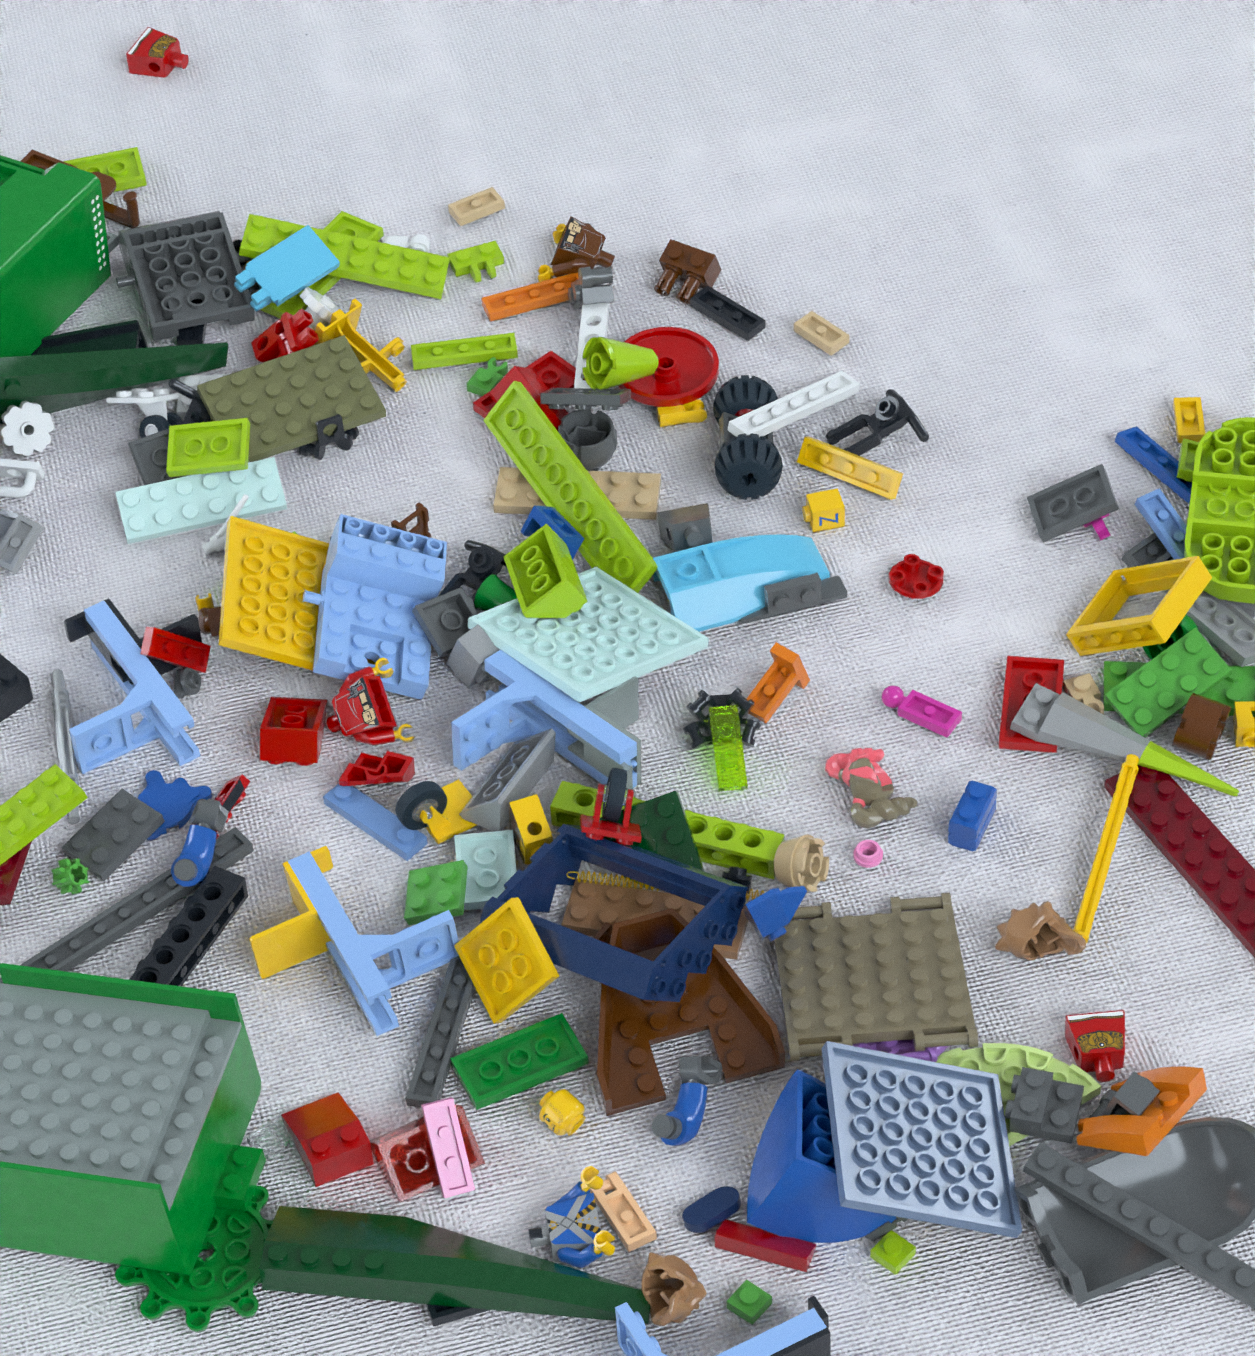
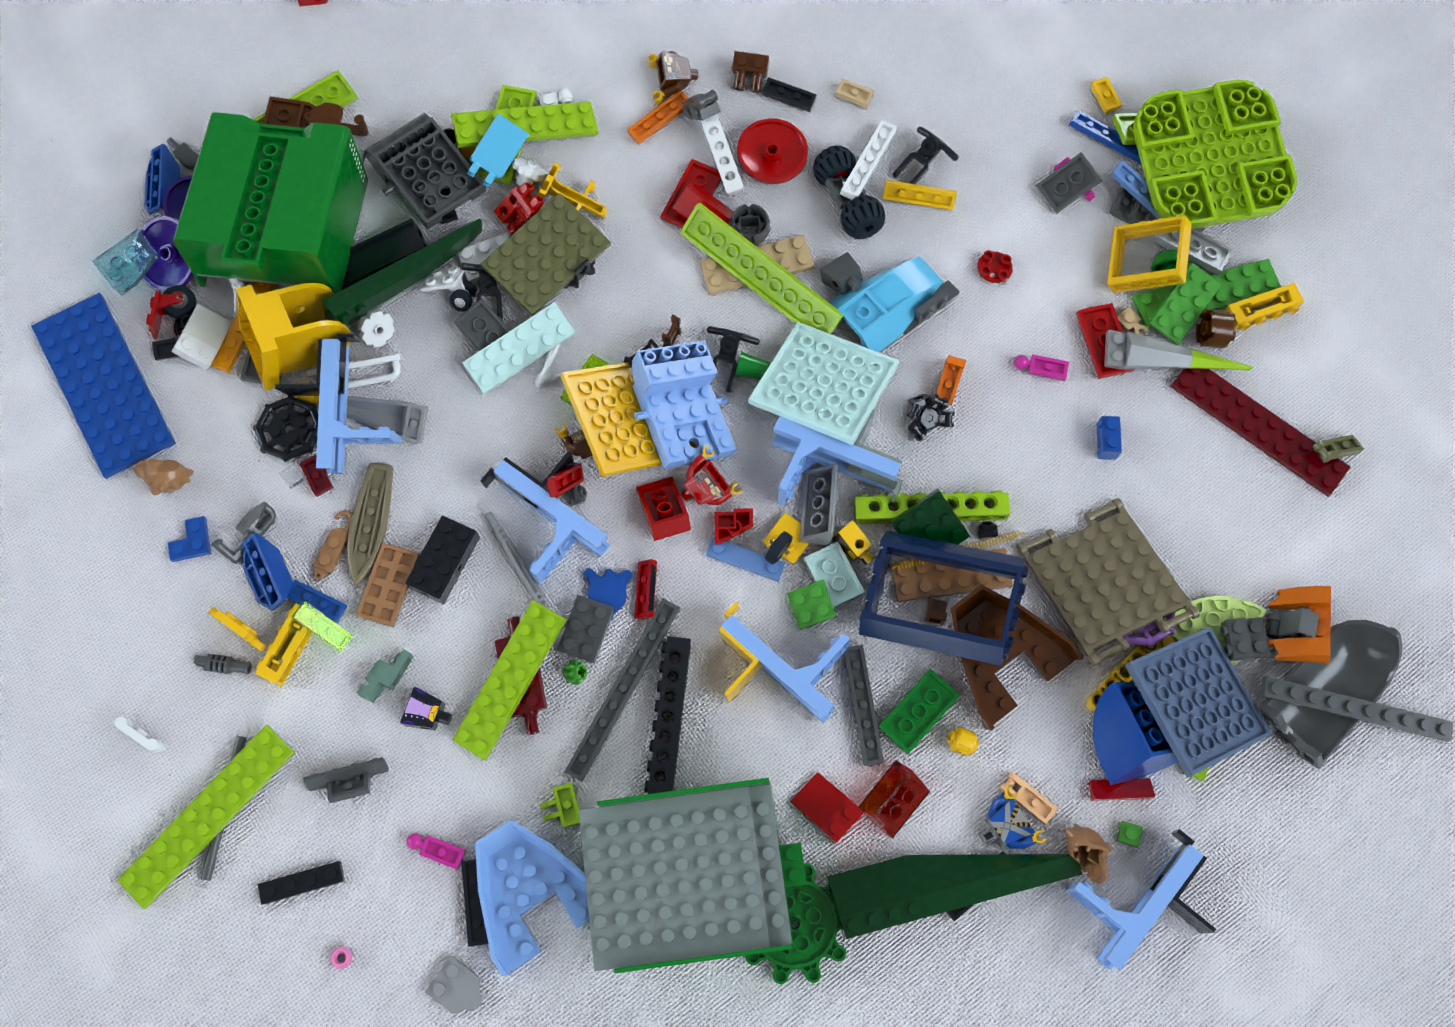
camera: 25 degrees left, 25 degrees up
(200, 842) = (651, 624): piece -> none
(208, 447) = (511, 311): lime plate -> none
(445, 619) = (730, 398): dark grey plate -> none
(448, 1147) = (913, 799): bright pink plate -> none
(464, 351) = (634, 174): lime plate -> none
(469, 656) = (757, 420): light grey brick -> none
(475, 259) = (606, 97): lime hinge -> none
(476, 206) = (588, 54): tan plate -> none
(486, 379) = (658, 192): bright green plate -> none
(506, 960) = (890, 652): yellow plate -> none
(541, 515) = (762, 304): blue panel -> none
(545, 576) = (779, 348): lime slope -> none
(585, 398) = (741, 197): dark grey plate -> none
(614, 796) = (909, 528): red plate -> none
(616, 362) = (748, 165): lime cone -> none
(680, 414) = (793, 184): yellow bar -> none
(686, 1118) = (1036, 708): piece -> none
(711, 1209) = (1080, 777): dark blue tile -> none
(727, 748) = (942, 436): clear neon green plate -> none
(774, 911) = (1041, 556): blue wedge -> none
(801, 862) = (1025, 510): tan cone -> none
(824, 510) = (918, 232): yellow brick -> none
(866, 848) = (1059, 480): bright pink plate -> none
(869, 787) = (1037, 434): dark tan hair -> none
(1037, 933) = (1182, 510): medium nougat head -> none
(1097, 1042) = (1251, 578): red torso -> none
(1106, 847) = (1197, 439): yellow piece -> none

